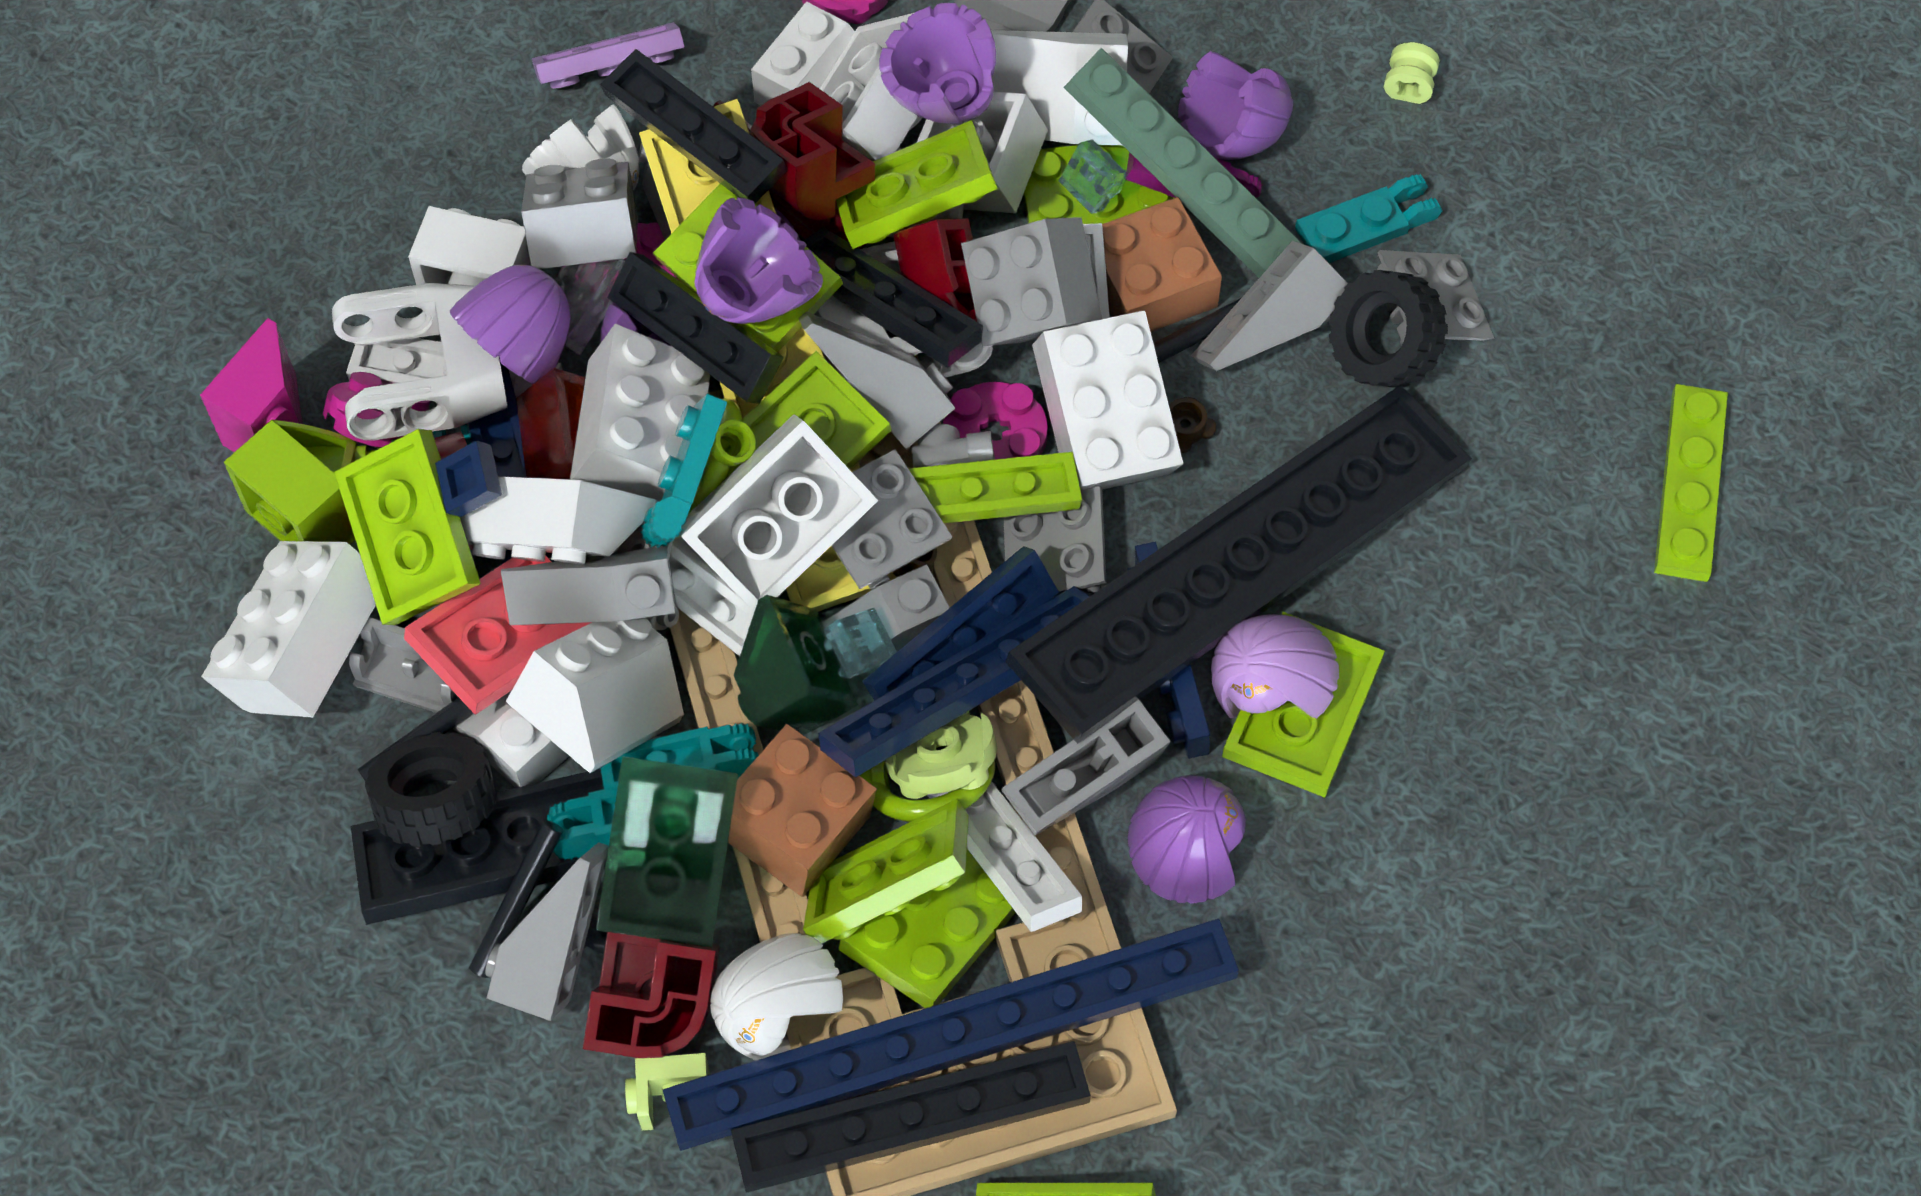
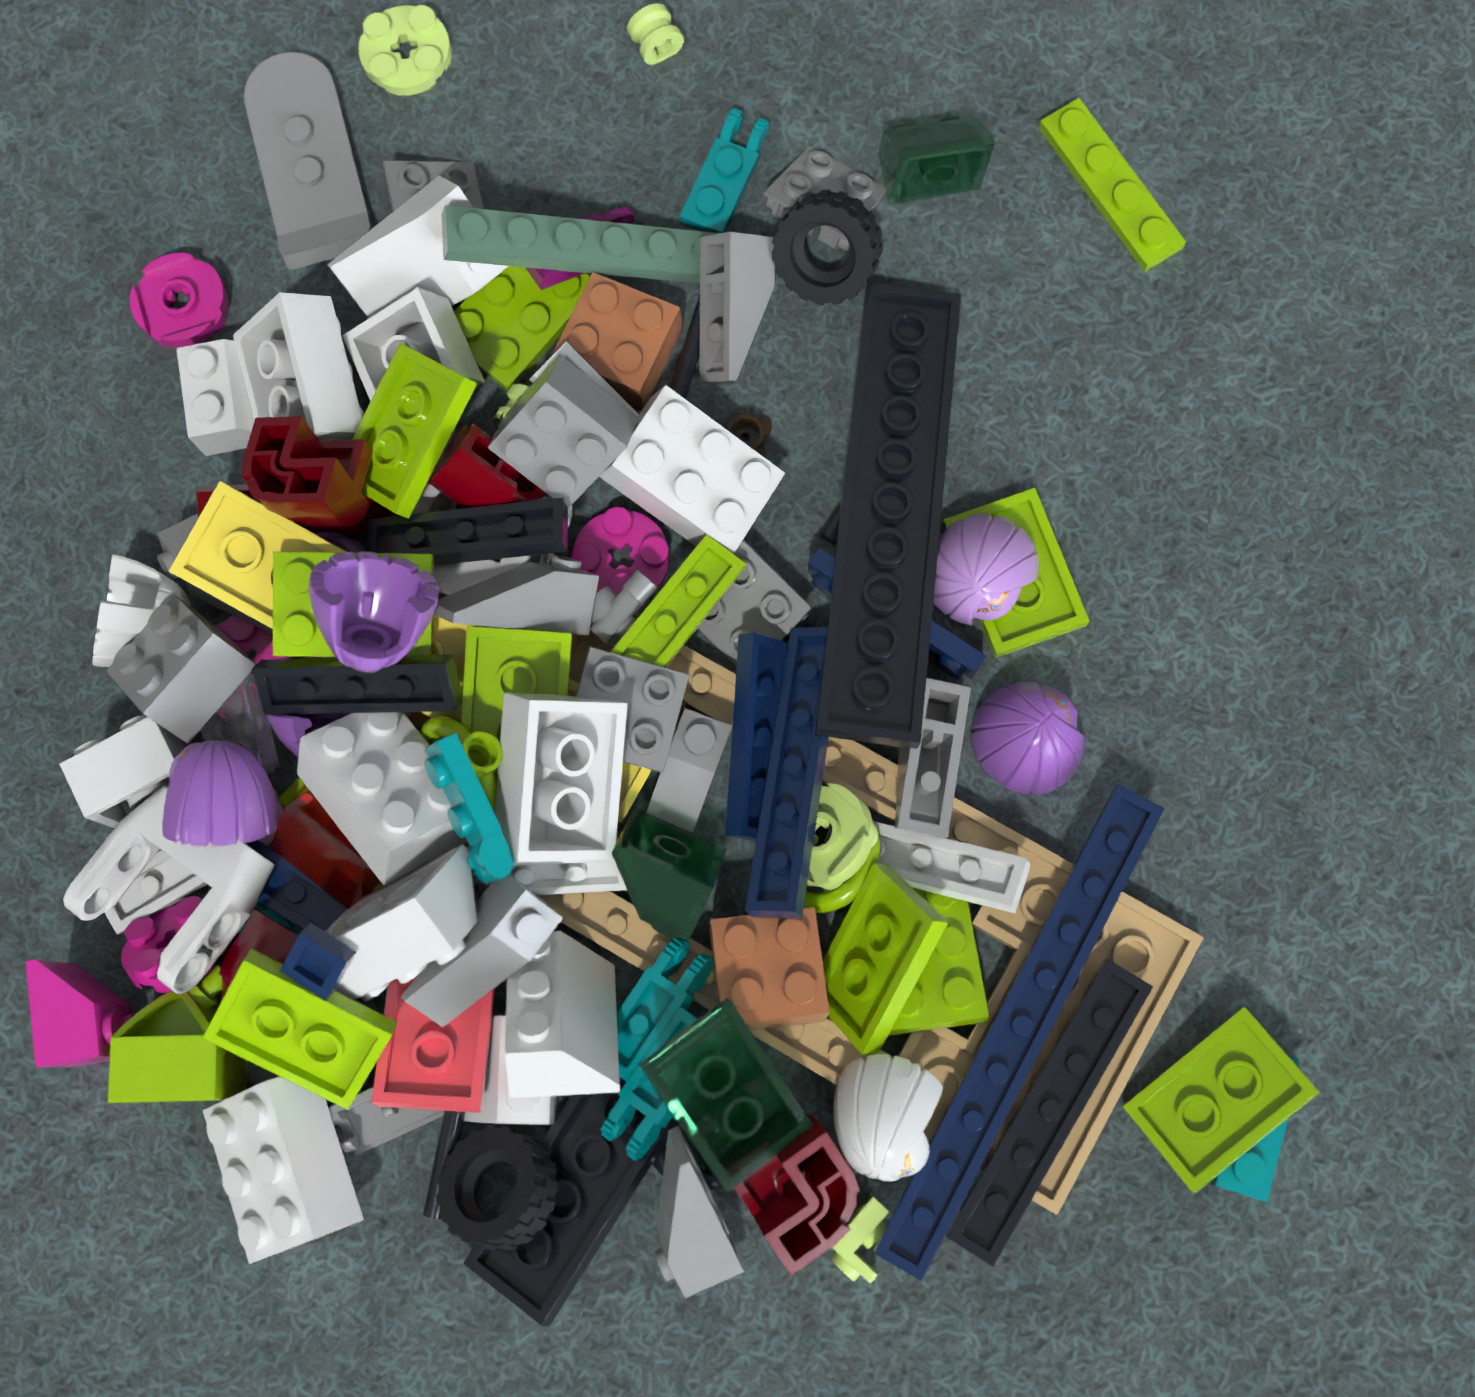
camera: 35 degrees left, 15 degrees up
(518, 893) = (637, 1210): black bar -> none
(606, 55) = (62, 514): lavender plate -> none
(693, 127) = (211, 534): black plate -> none
(859, 643) = (697, 809): clear light blue tile -> none
(941, 64) = (339, 318): medium lavender hair -> none
(1093, 176) = (516, 307): clear light blue tile -> none
(1232, 109) = (561, 168): medium lavender hair -> none
(1547, 338) = (934, 158): none -> clear green slope

